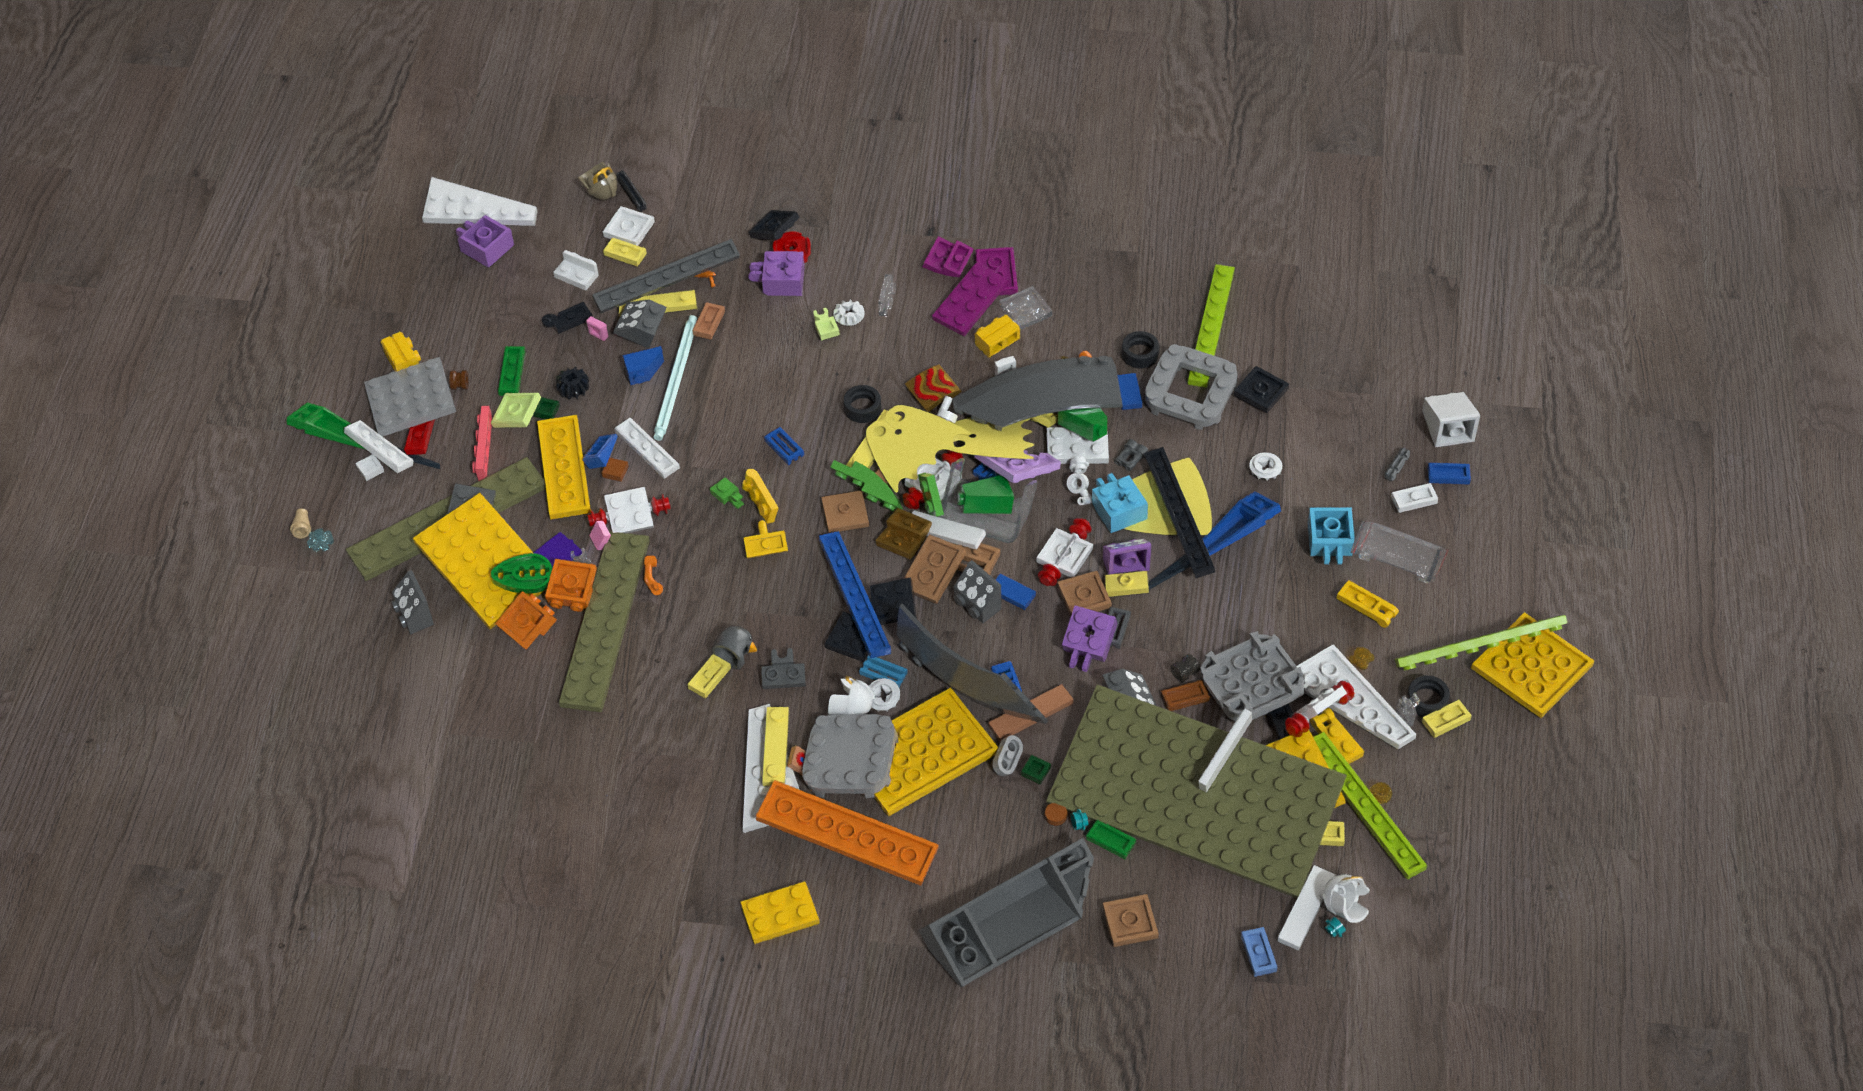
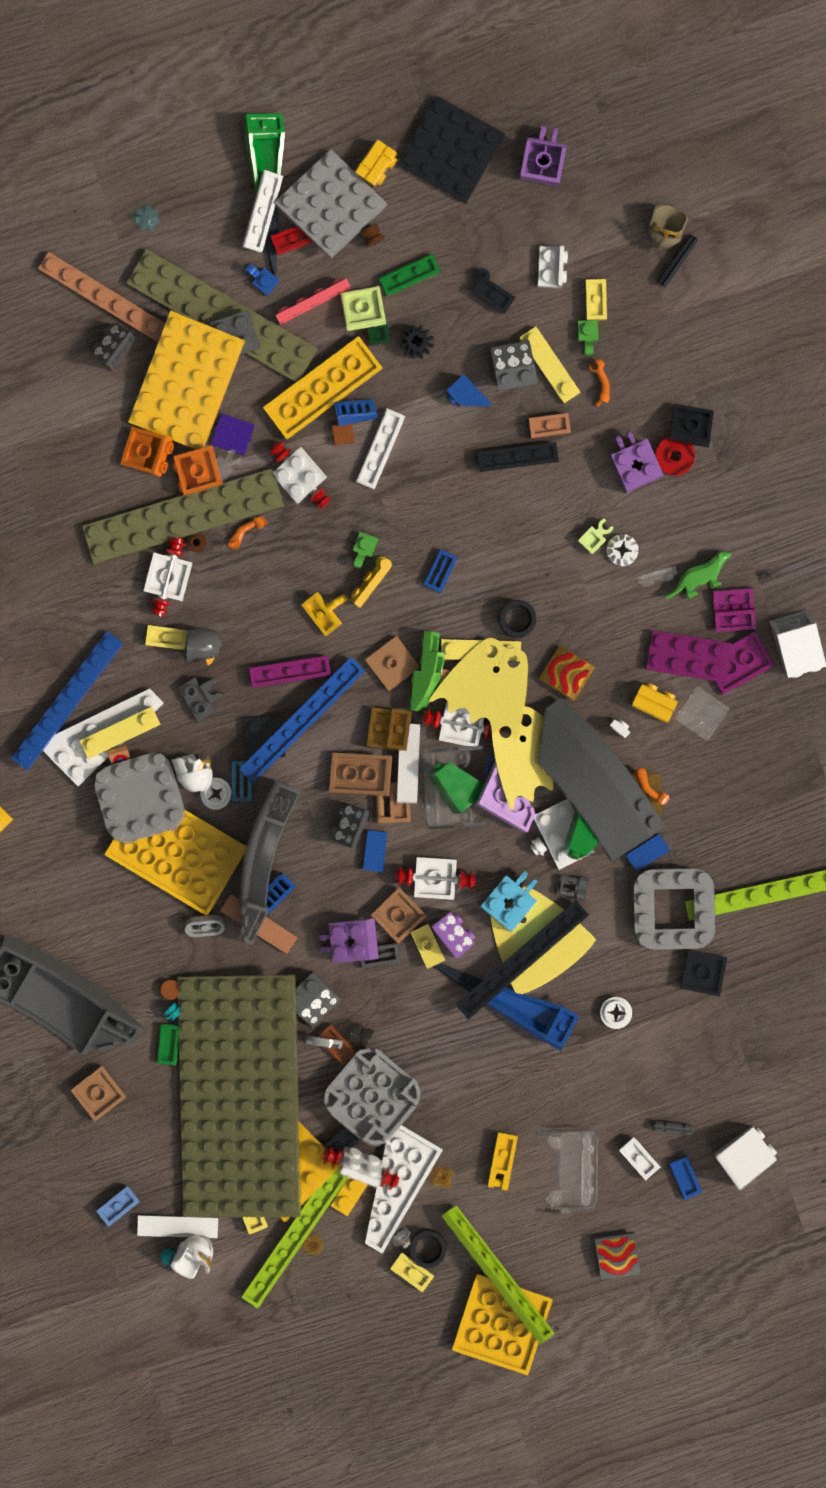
camera: 65 degrees right, 35 degrees up
(300, 526) = (153, 192): tan cone -> none
(359, 603) = (102, 296): none -> nougat plate
(369, 467) = (240, 215): white plate -> none
(428, 303) = (451, 149): none -> black plate
(437, 474) = (263, 280): none -> blue plate
(458, 204) = (584, 110): white wing -> none
(526, 562) = (195, 420): green piece -> none
(597, 328) = (490, 328): bright pink tile -> none
(599, 535) = (263, 464): bright pink tile -> none
(628, 226) = (629, 285): white plate -> none
(638, 621) = (203, 542): none -> reddish brown plate
(646, 265) = (588, 333): none -> bright green plate
(653, 651) = (168, 577): none -> white plate
(665, 276) = (576, 361): dark grey plate -> none
(675, 378) = (471, 431): light aqua piece -> none
(718, 784) = (67, 701): none -> blue plate
(720, 352) = (518, 457): none -> black plate
(803, 590) = (290, 671): none -> magenta plate
(847, 832) = (68, 831): orange plate -> none
(889, 596) = (313, 755): black plate -> none
(905, 265) = (700, 575): none -> bright green animal
(930, 494) = (432, 735): bright green plate -> none
(943, 411) = (533, 703): white plate -> none
(1004, 221) = (798, 644): none -> white slope
(1036, 769) = (203, 955): dark green plate -> none
(1074, 488) = (515, 856): white plate -> none
(1140, 338) = (700, 827): black tyre -> none
(1176, 696) = (325, 1042): none -> light grey tile
(1225, 750) = (271, 1111): white tile -> none
(1330, 533) = (555, 1113): medium azure hinge -> none
(1502, 549) = (617, 1255): none -> slope

